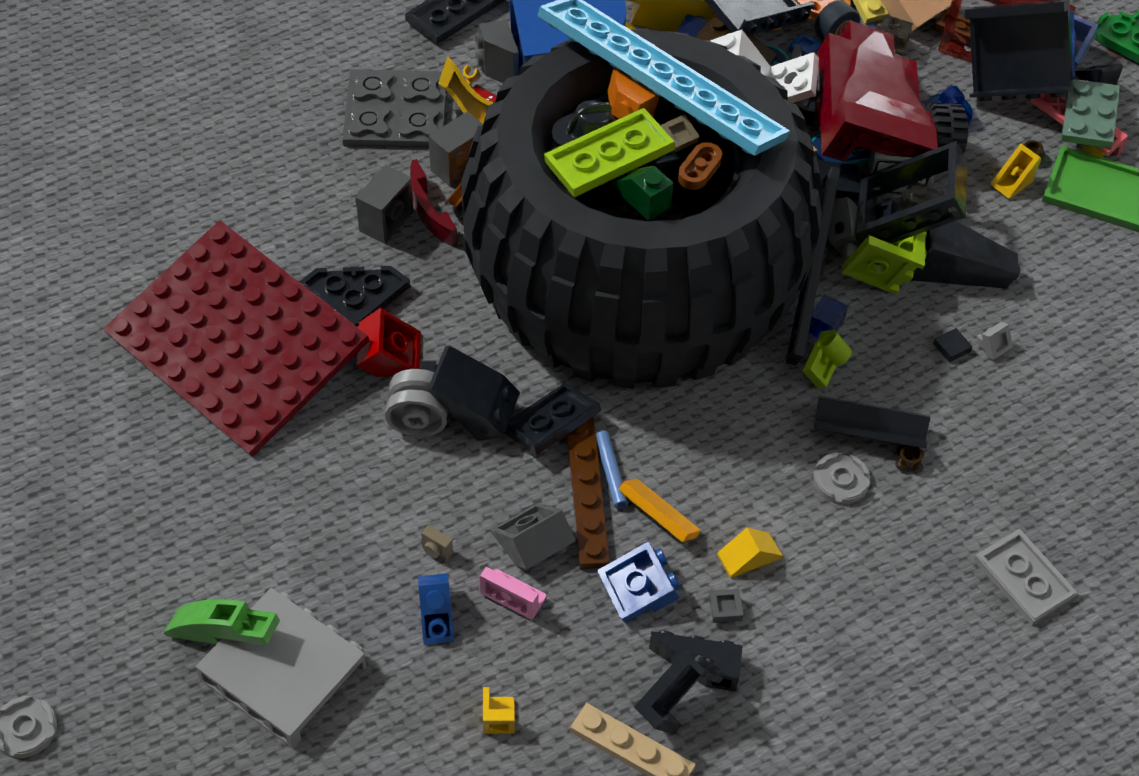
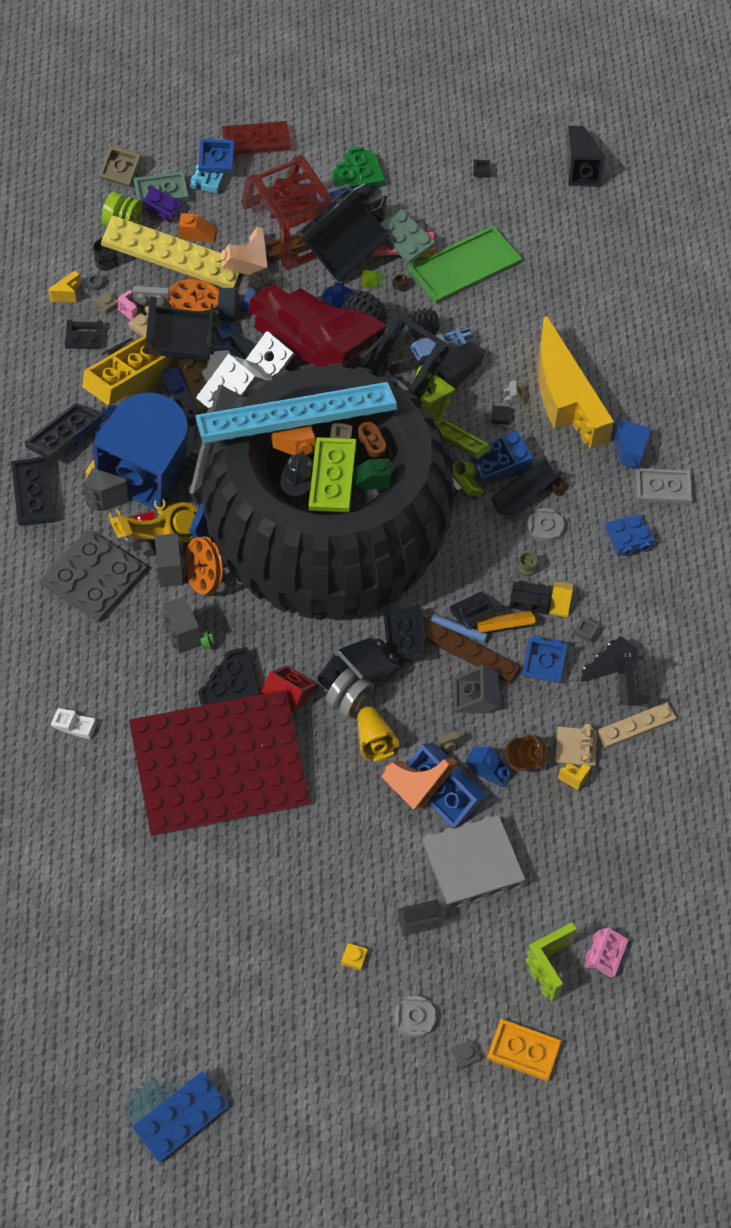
camera: 55 degrees left, 5 degrees up
(69, 614) = (354, 956): none -> yellow plate
(162, 650) = (420, 918): none -> clear smoke brick
(198, 191) = (71, 723): none -> white slope
(224, 619) = (428, 874): bright green slope -> none
(345, 537) = (415, 785): none -> orange arch
(373, 573) = (457, 795): none -> blue slope
(383, 461) = (375, 736): none -> yellow cone
(392, 241) = (207, 639): none -> bright green plate
(437, 224) = (199, 608): dark red slope -> none
(482, 637) = (527, 752): none -> reddish brown helmet
(511, 592) = (507, 723): bright pink bracket -> none
(544, 693) = (576, 745): none -> tan hinge
(647, 467) = (474, 609): none -> black plate
(716, 515) = (530, 597): none -> black brick
(762, 487) = (527, 564): none -> olive wheel
(870, 317) = (462, 439): none -> lime tile
(887, 374) = (505, 459): none -> blue slope
(911, 578) = (629, 535): none -> blue plate
(982, 222) = (454, 338): none -> medium blue arm
(994, 196) = (425, 318): none -> black tyre
(1007, 124) = (370, 279): none -> clear neon green plate
(1017, 172) = (411, 297): yellow slope -> none
(1045, 383) = (568, 393): none -> yellow slope
(1049, 500) = (630, 442): none -> blue slope
(1108, 51) = (364, 191): none -> black cone

